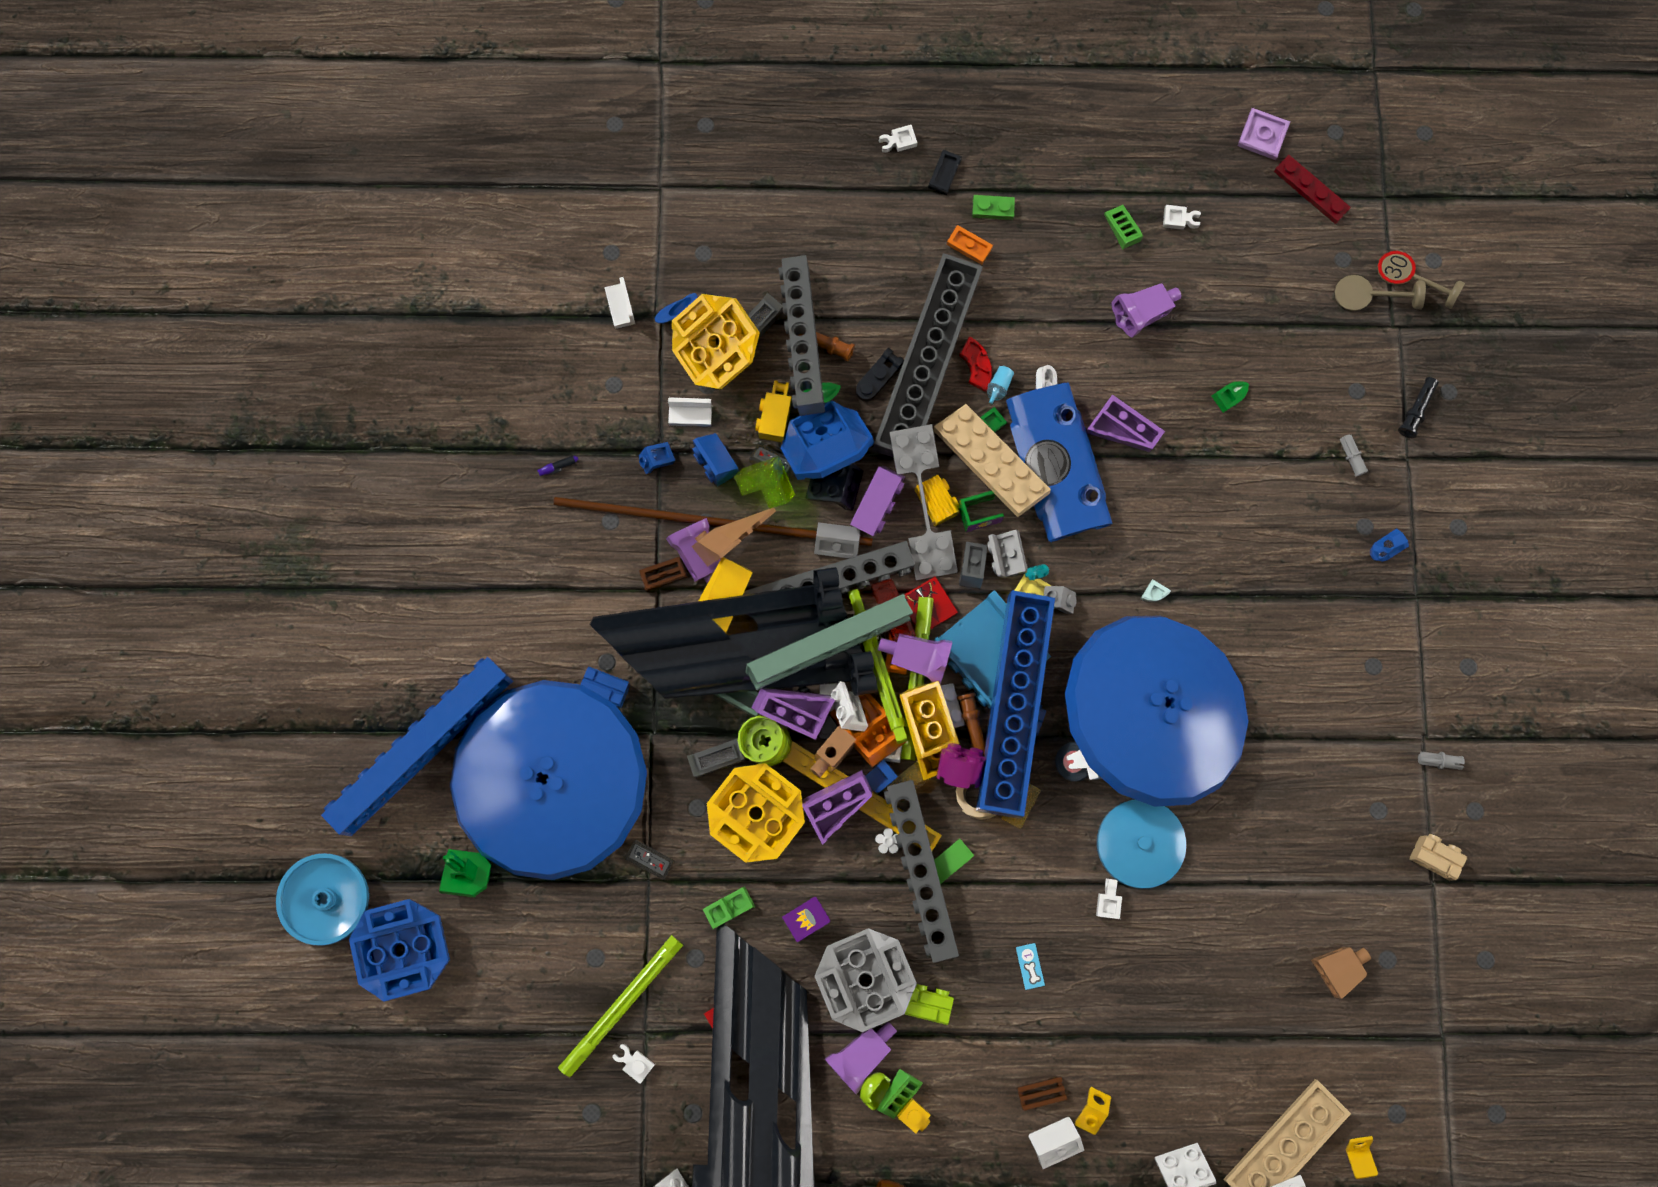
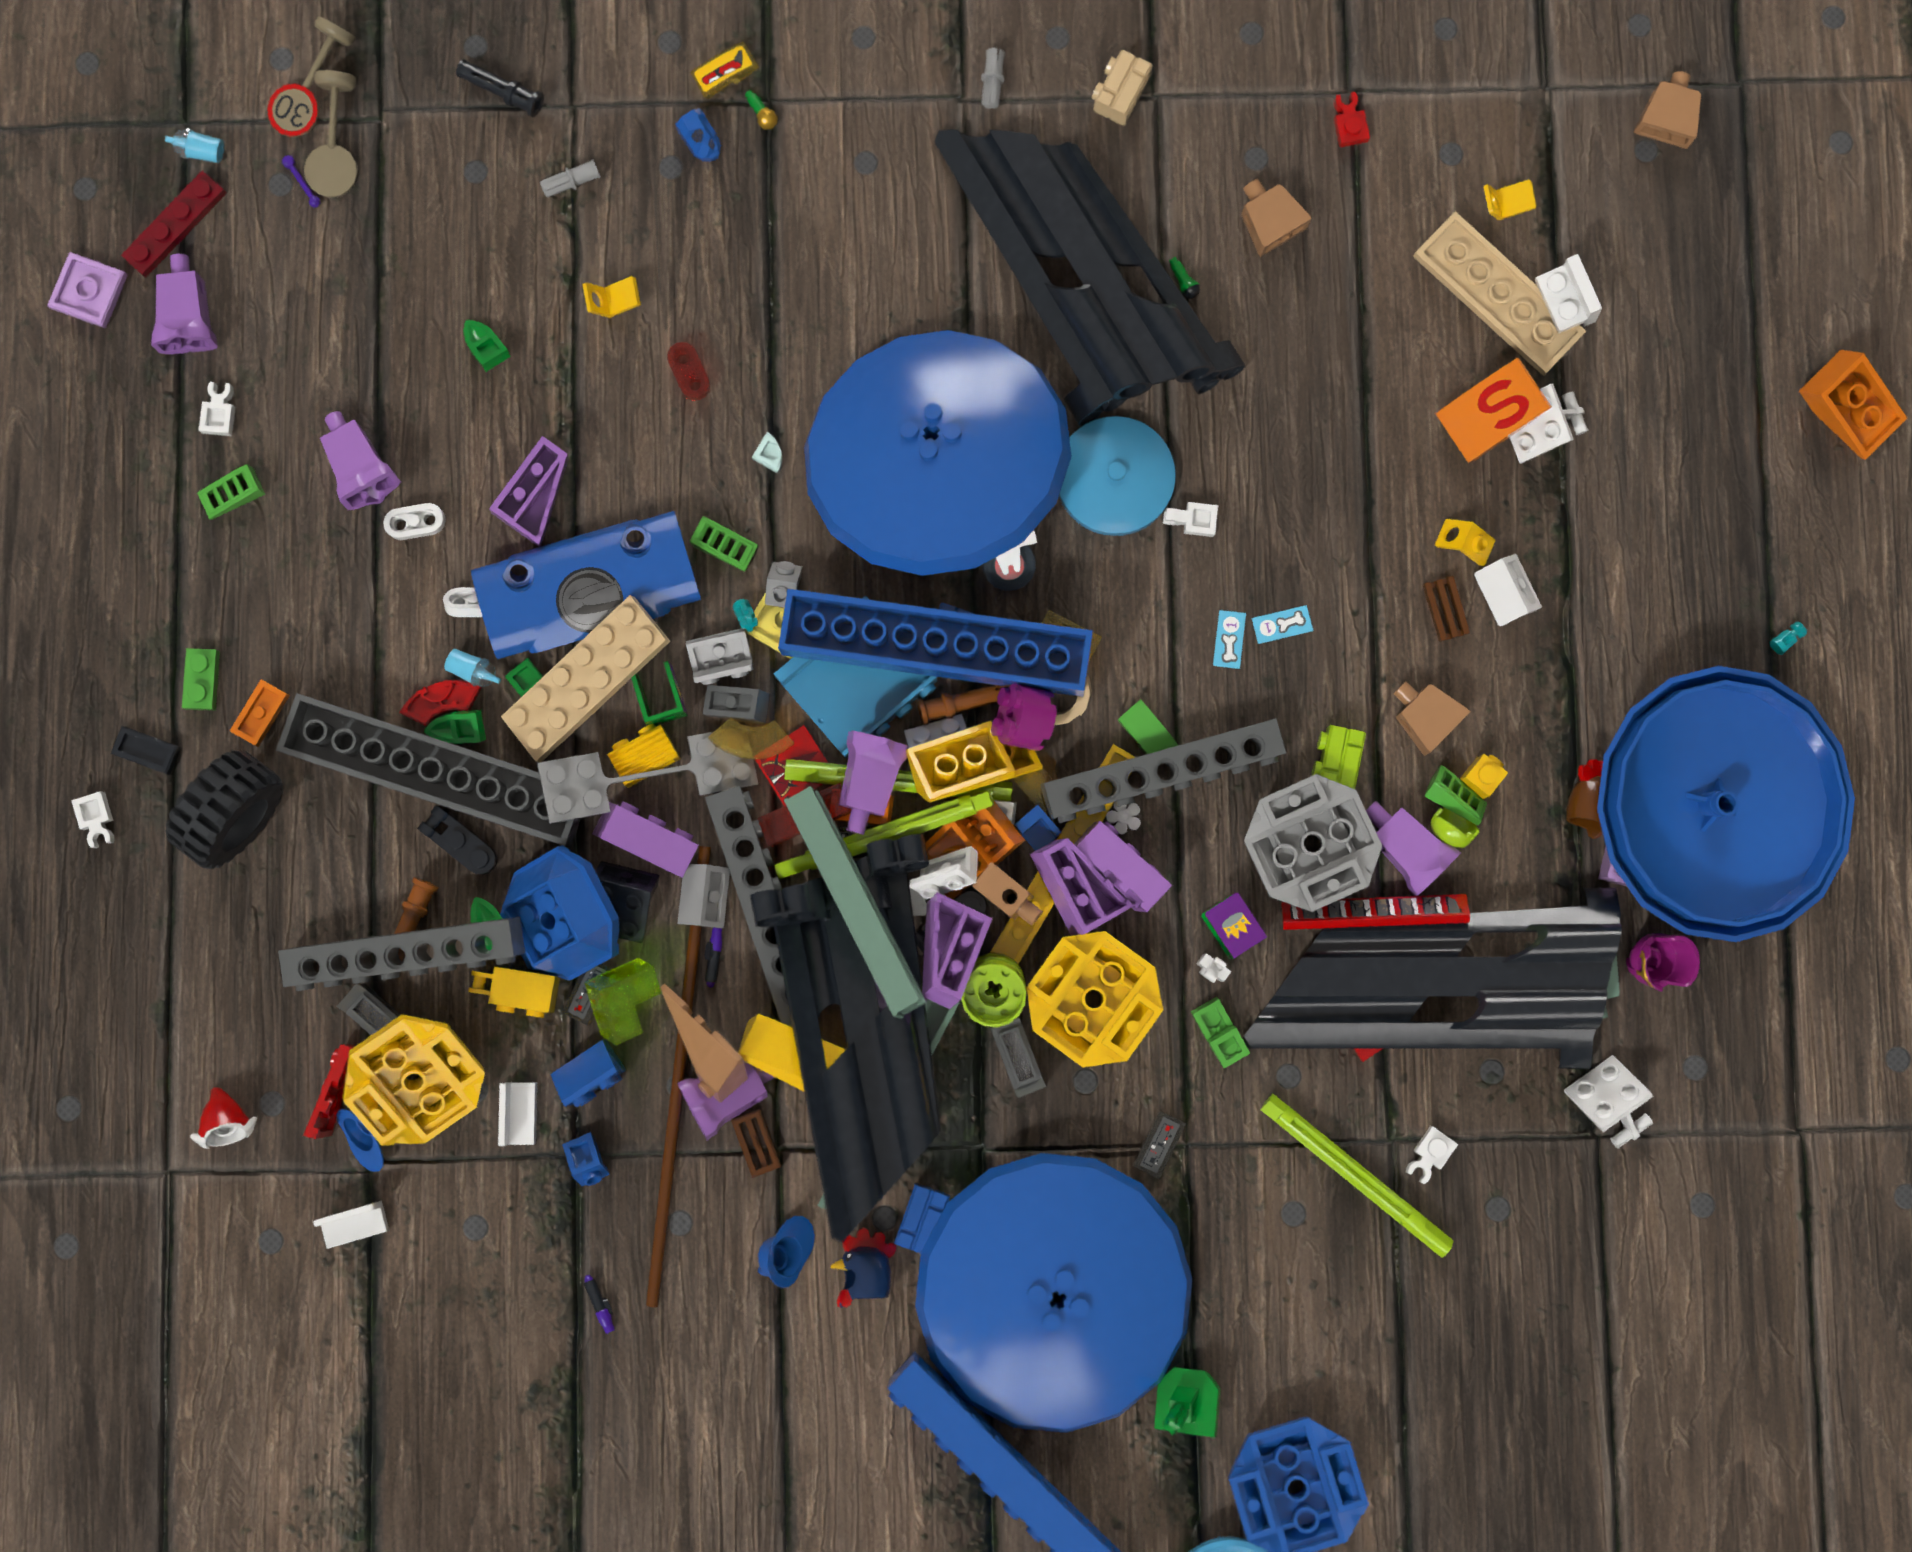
camera: 85 degrees left, 5 degrees up
(573, 646) = (865, 1267): none -> dark blue piece
(586, 592) = (786, 1253): none -> blue piece
(691, 284) = (331, 1097): none -> red wing
(696, 219) = (222, 1121): none -> hat
(774, 902) = (1213, 968): none -> white plate
(797, 546) = (712, 955): none -> black piece
(813, 1031) = (1380, 912): none -> red tile
(852, 836) = (1122, 866): none -> medium lavender wedge
(903, 218) = (224, 809): none -> black tyre
(945, 574) = (751, 741): none -> clear yellow tile
(958, 375) = (458, 727): none -> green plate
(960, 1074) = (1428, 715): none -> medium nougat torso
(1019, 925) = (1229, 639): none -> medium azure sticker
(1091, 539) = (696, 541): none -> bright green slope
(1103, 348) = (415, 519): none -> white plate
(1194, 1135) = (1493, 410): none -> orange slope
(1213, 535) = (688, 372): none -> clear red plate
(1250, 193) = (181, 311): none -> medium lavender piece
(1266, 484) = (613, 298): none -> yellow bracket
(1286, 903) = (1188, 286): none -> green piece
(1345, 804) = (1055, 207): none -> black panel
(1358, 265) = (289, 163): none -> dark purple hinge
(1368, 203) = (197, 145): none -> medium azure piece
(1404, 594) = (766, 117): none -> piece
(1416, 1034) = (1350, 124): none -> red plate
(1440, 565) = (722, 69): none -> slope

